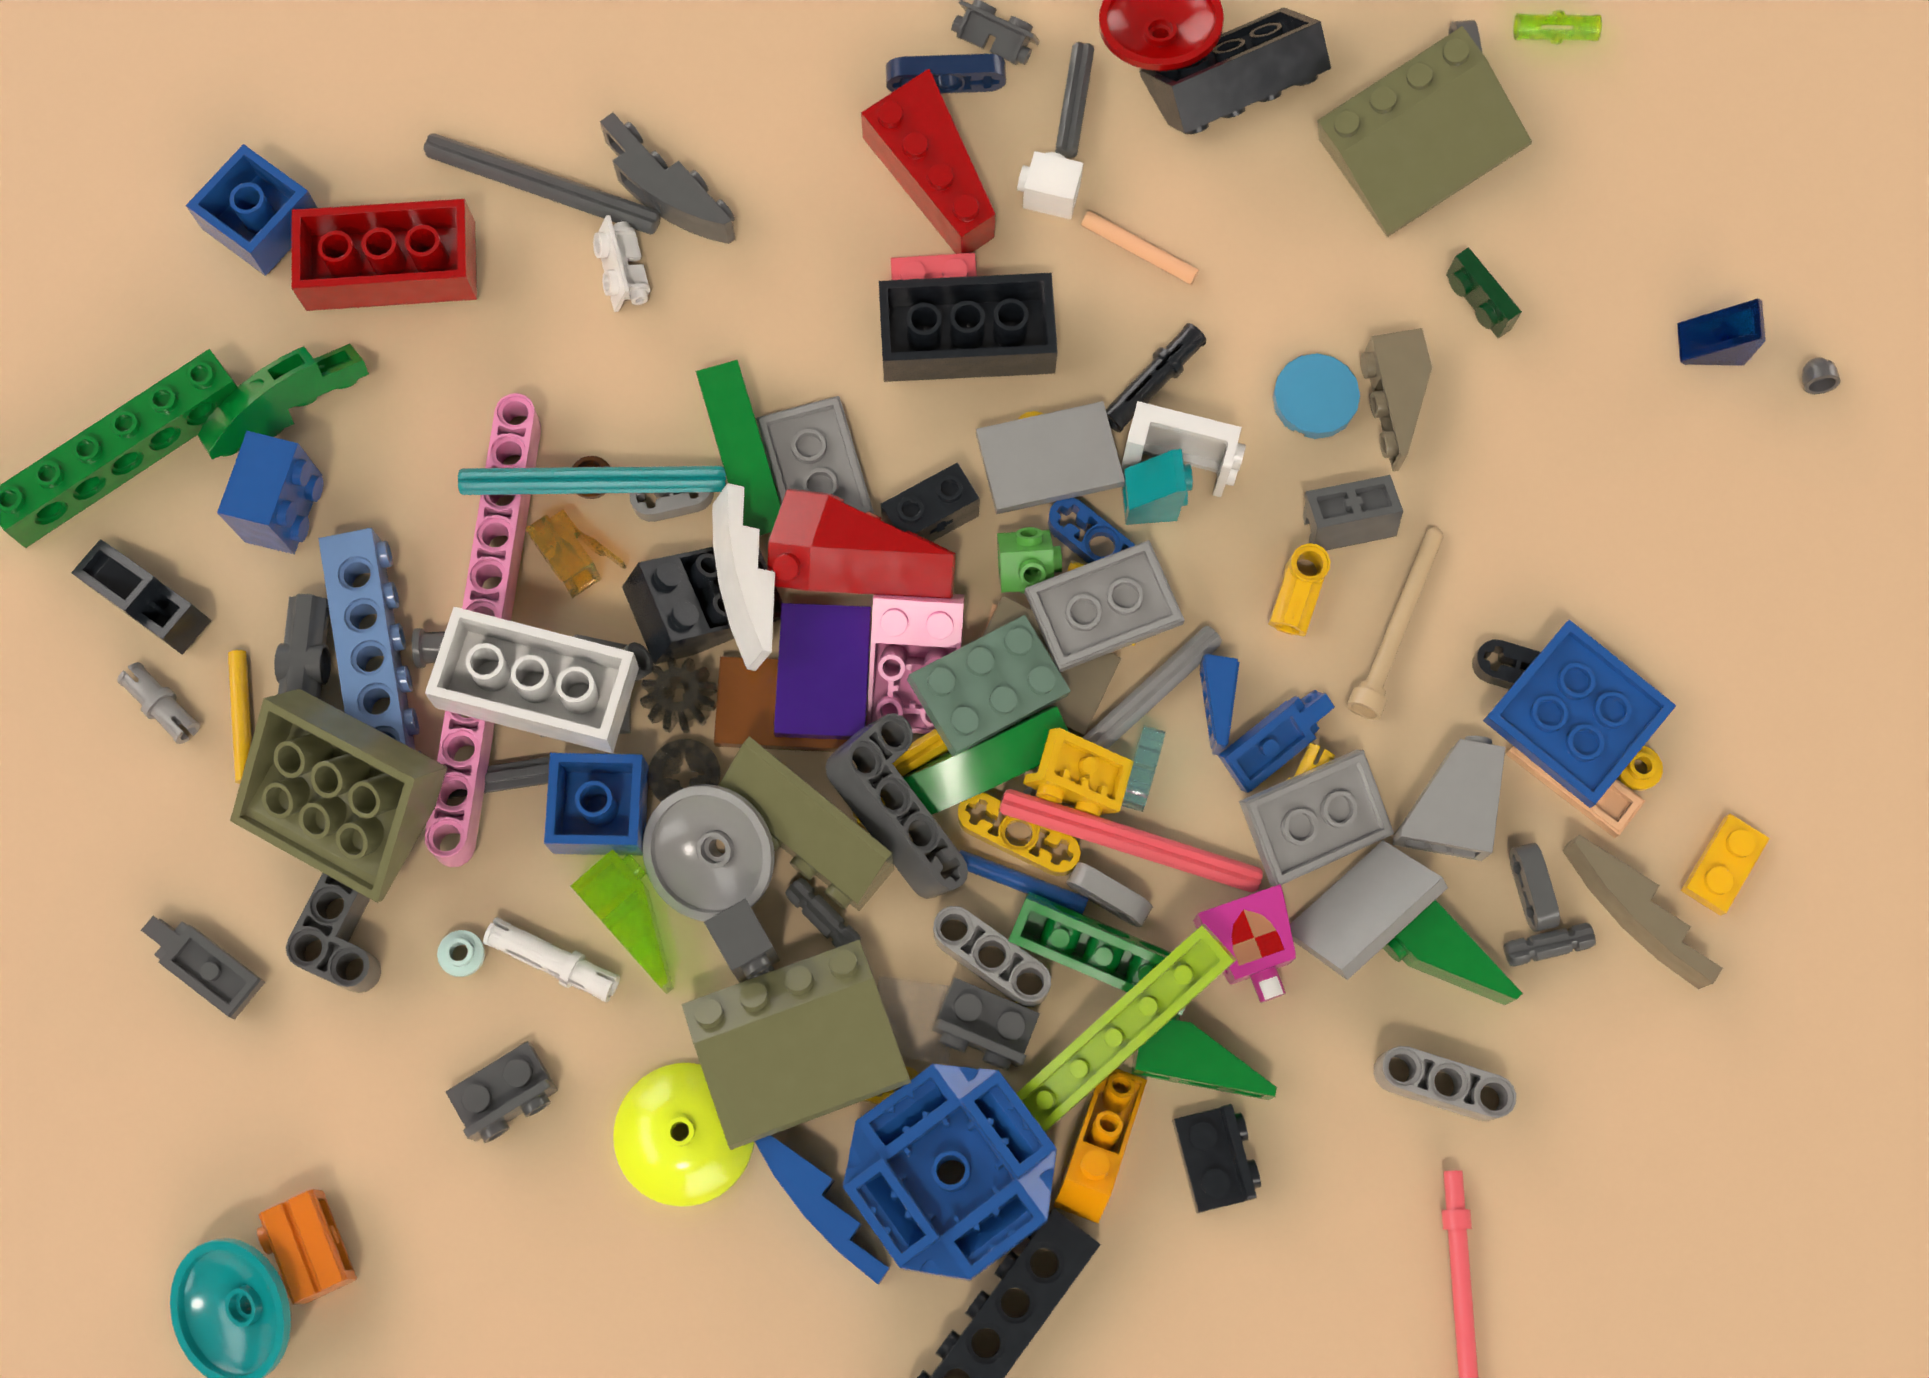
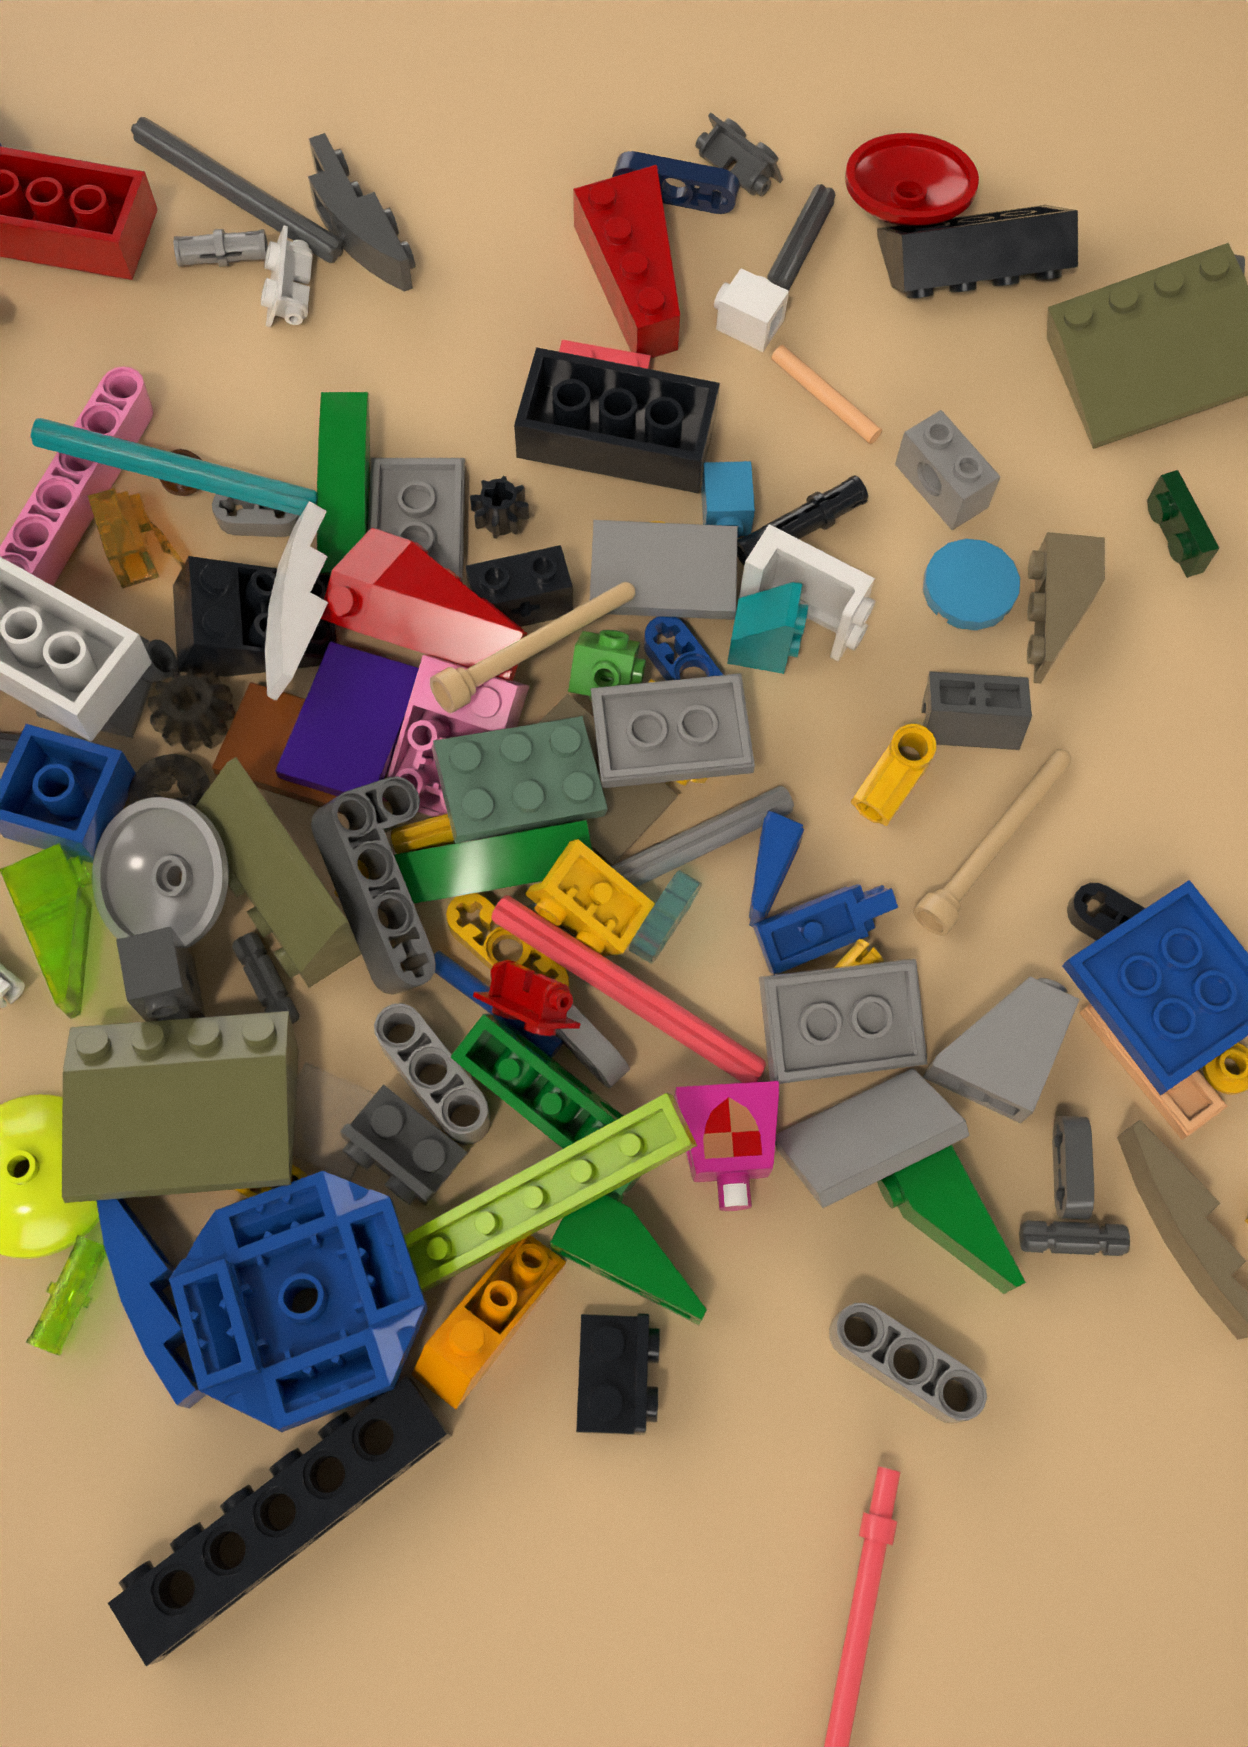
camera: 15 degrees right, 5 degrees down
(549, 247) = (220, 247): none -> light grey pin
(752, 1222) = (68, 1296): none -> clear neon green pin
(886, 423) = (499, 507): none -> black gear
(914, 622) = (456, 686): none -> tan piece
(1070, 878) = (528, 997): none -> red hinge
(1084, 373) = (728, 495): none -> dark azure brick
(1268, 296) = (946, 469): none -> light grey brick

